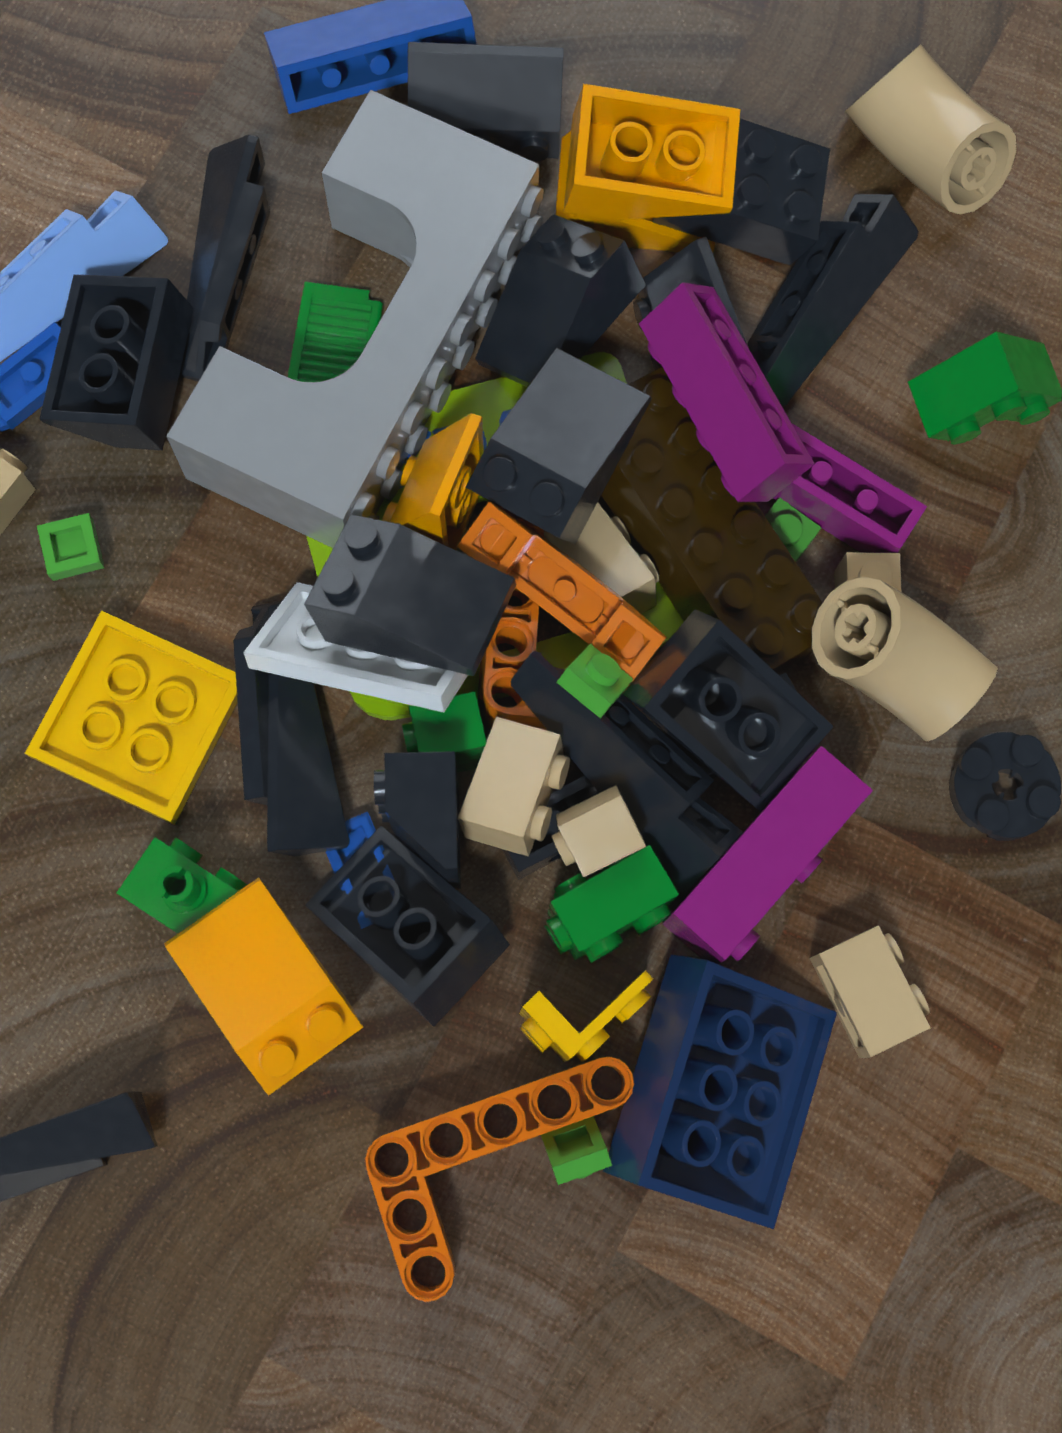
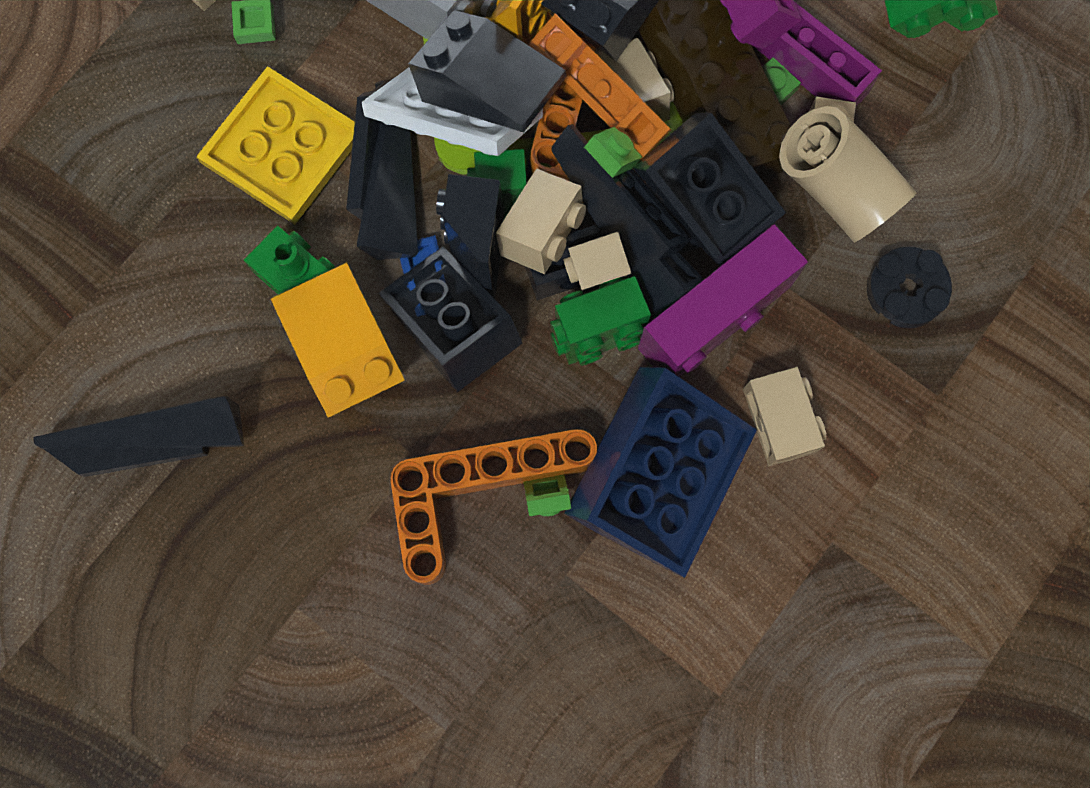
camera: 15 degrees right, 0 degrees up
(548, 1027) = (543, 405): yellow bracket -> none

